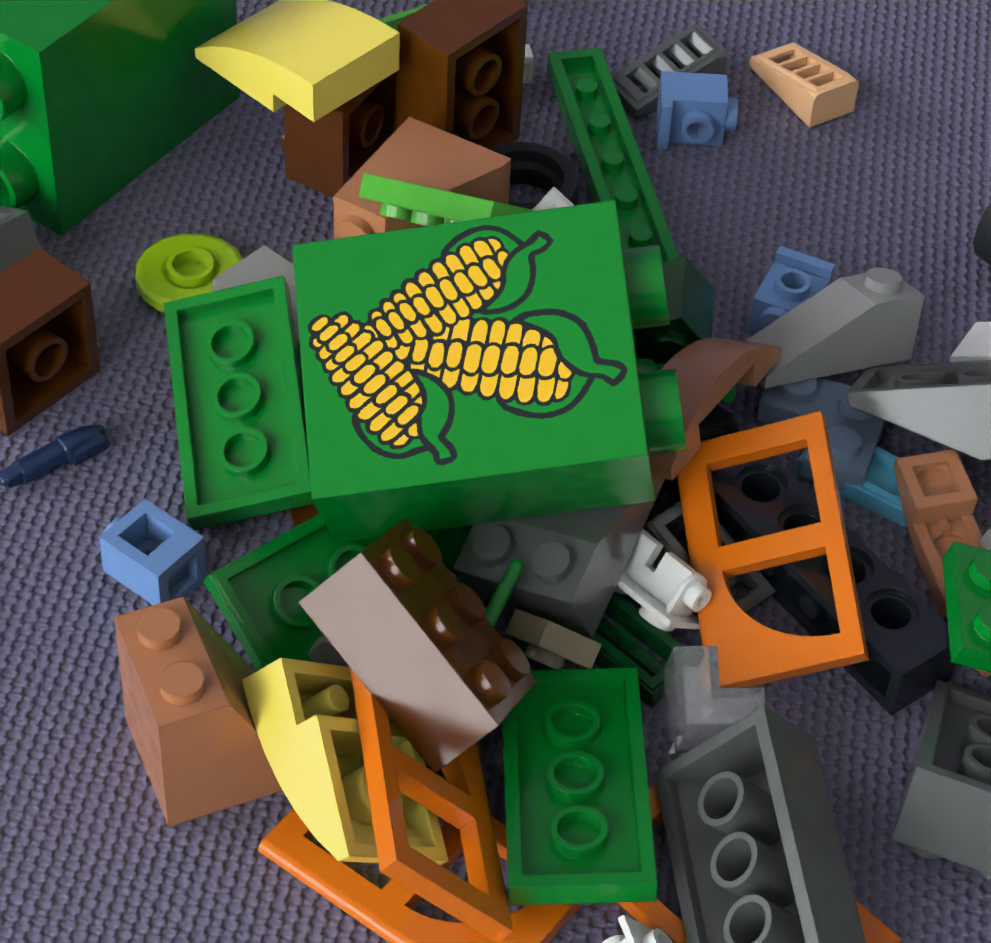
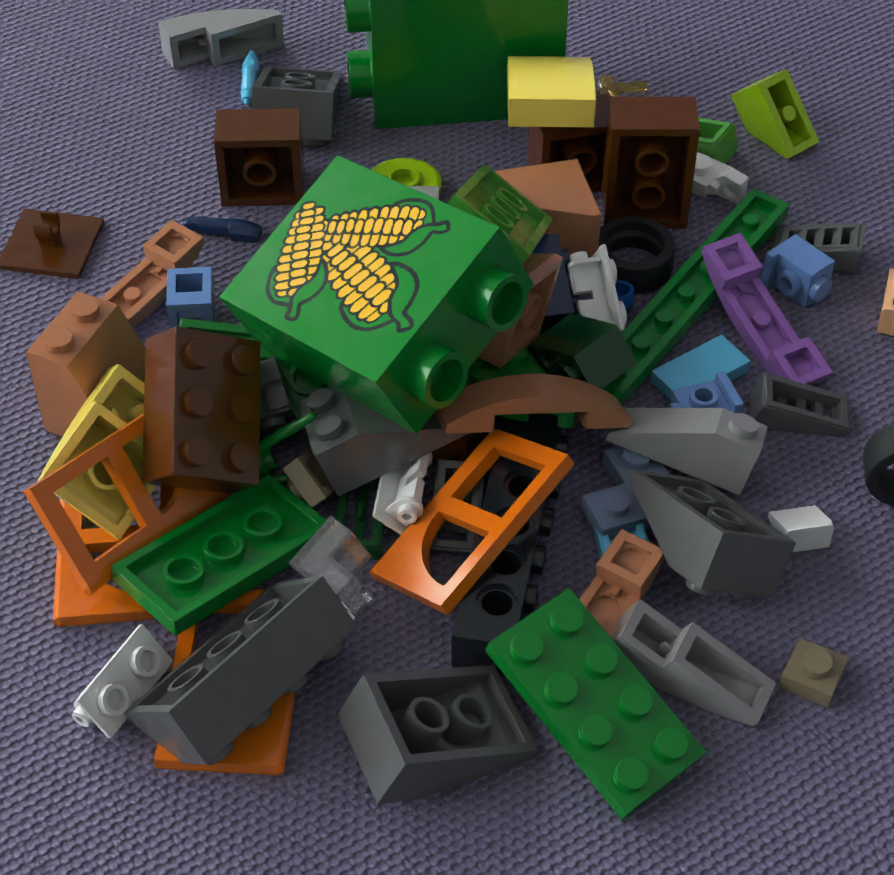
camera: 50 degrees right, 0 degrees up
(64, 593) = (146, 284): none -> nougat slope
(720, 184) = (757, 316): none -> medium lavender slope
(729, 264) = (700, 366): none -> medium azure tile
(848, 244) = (771, 406): none -> dark grey slope

